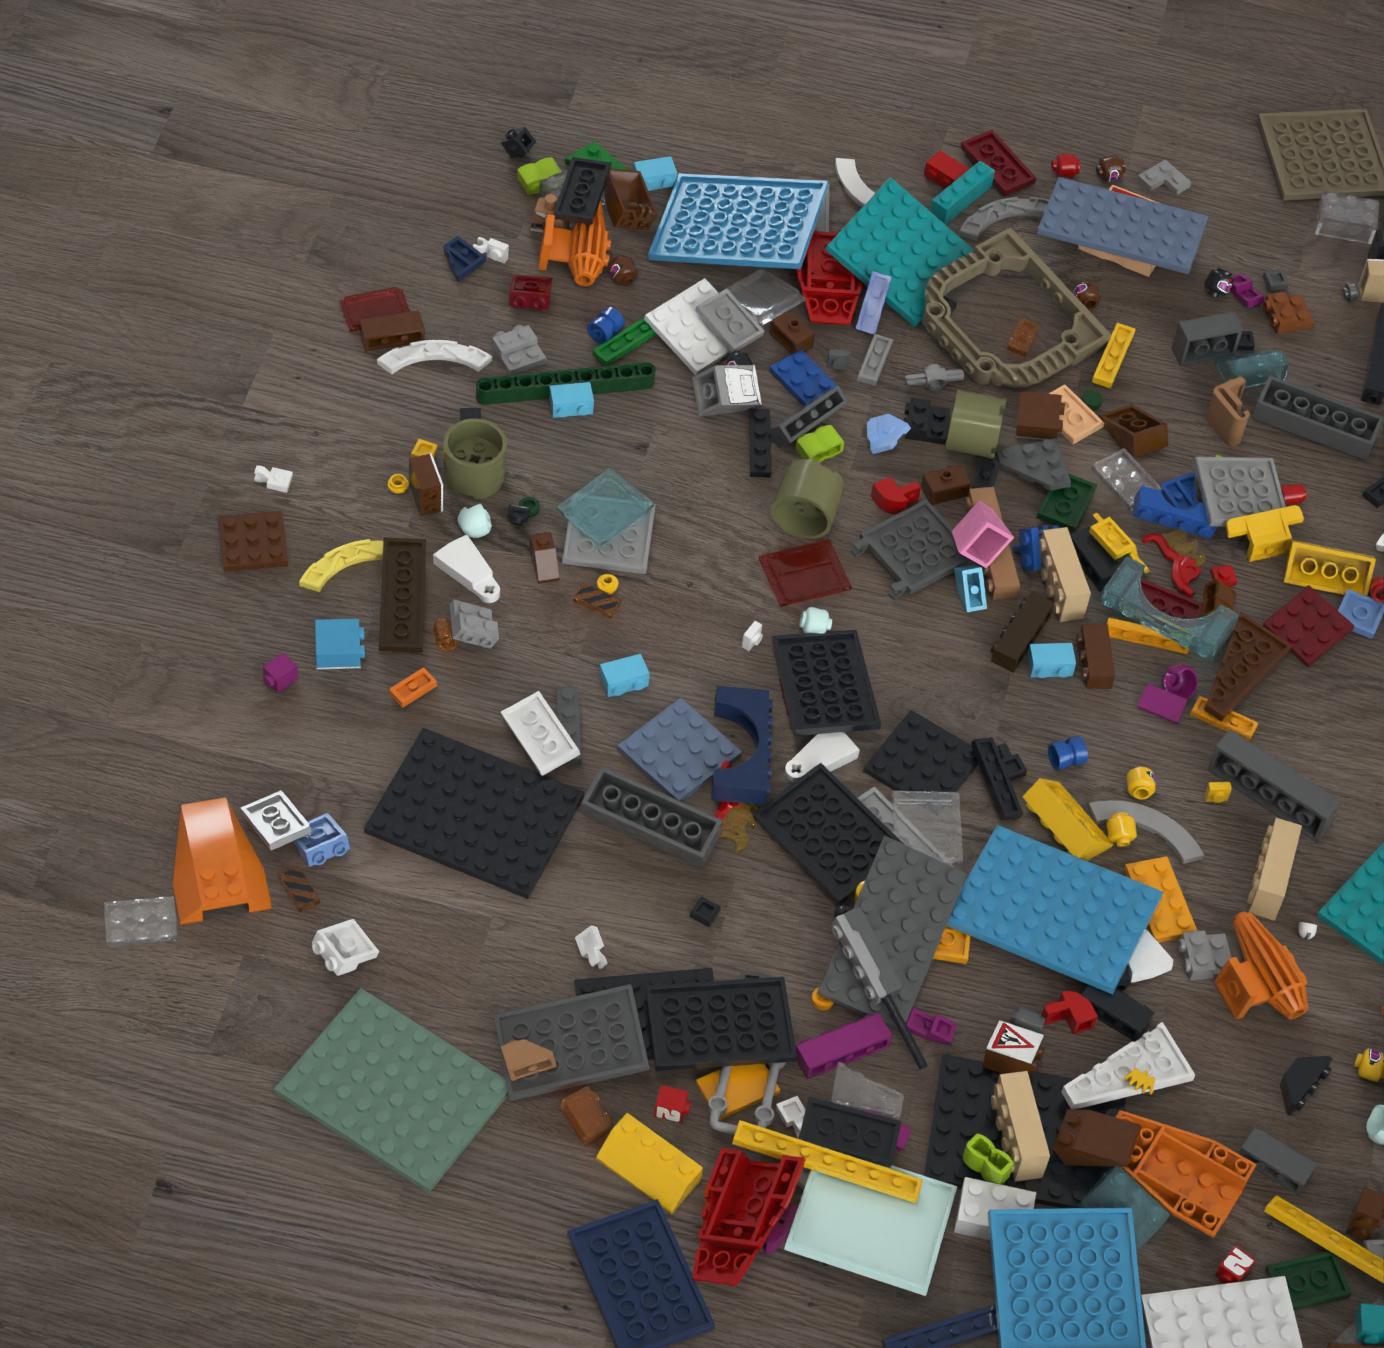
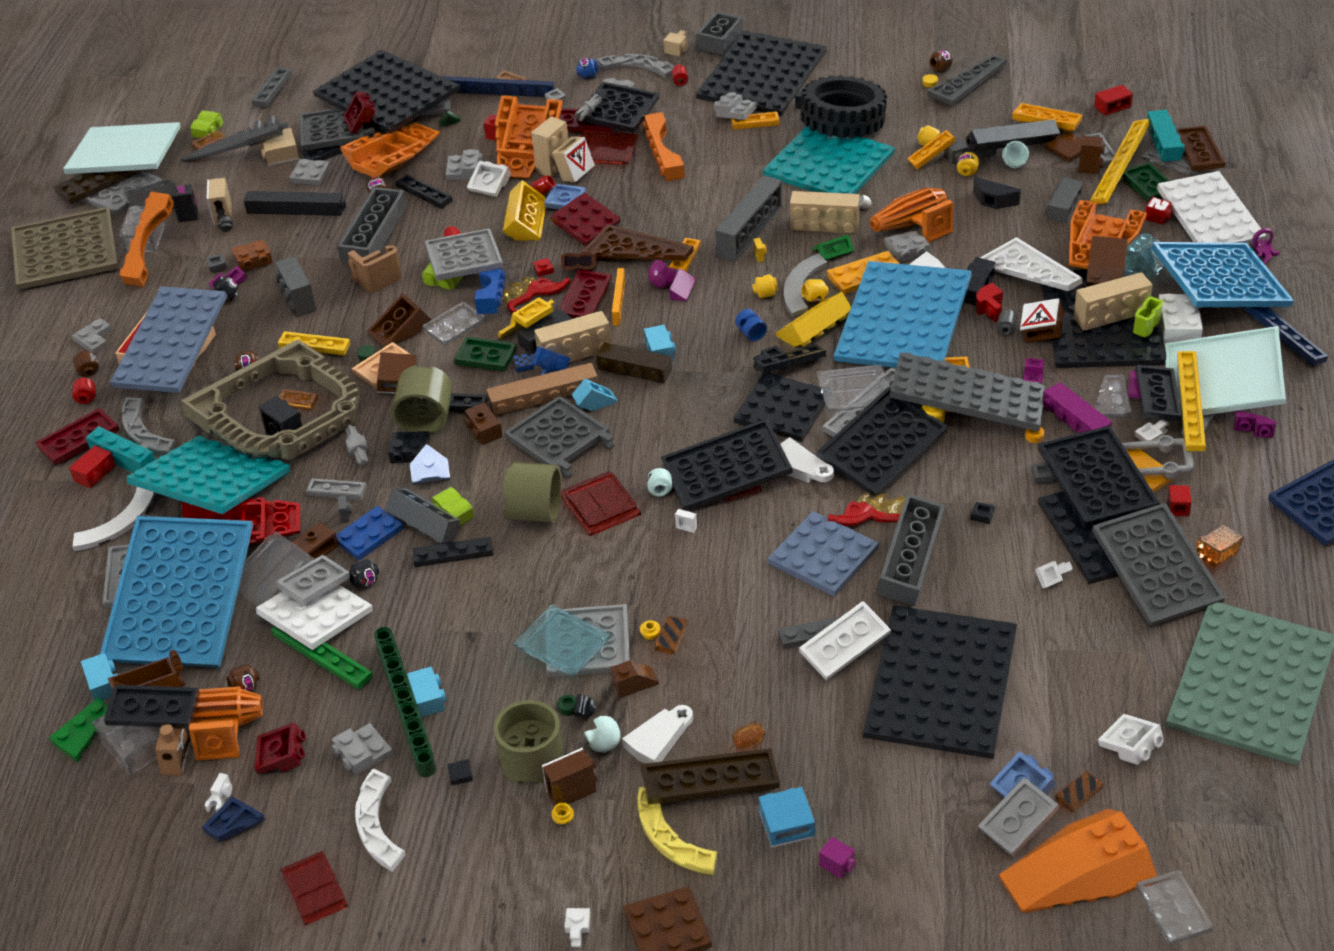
camera: 90 degrees left, 10 degrees down
(391, 330) = (348, 860): reddish brown brick -> none
(413, 687) = (818, 749): orange plate -> none
(424, 447) = (515, 798): yellow plate -> none
(473, 624) = (737, 711): light grey plate -> none
(518, 142) = (56, 797): black brick -> none
(526, 1058) = (1194, 584): medium nougat slope -> none
(533, 173) = (105, 772): lime brick -> none
(605, 325) = (322, 679): blue wheel -> none
(624, 675) = (757, 597): medium azure brick -> none
(650, 1163) = (1240, 502): yellow slope -> none
(726, 389) = (402, 573): light grey slope -> none
(740, 1213) = (1260, 435): red wedge -> none
(749, 780) = (847, 491): dark blue arch -> none
(872, 968) = (1011, 389): piece -> none
(873, 302) = (276, 484): plate -> none
(892, 498) = (502, 452): red brick -> none
(975, 311) = (279, 416): none -> black brick
(981, 535) = (549, 380): bright pink slope -> none
(1036, 462) = (454, 364): dark grey plate -> none
(1096, 656) = (635, 321): reddish brown brick -> none
(1141, 1080) = (1040, 254): yellow piece -> none
(1180, 492) = (463, 292): blue wing -> none
(1200, 635) = (593, 298): clear light blue arch -> none
(1213, 873) = (834, 247): none -> green panel
(1254, 366) = (318, 265): clear light blue slope -> none
(1266, 531) = (501, 239): yellow plate -> none
(1342, 211) = (156, 210): none -> orange arch

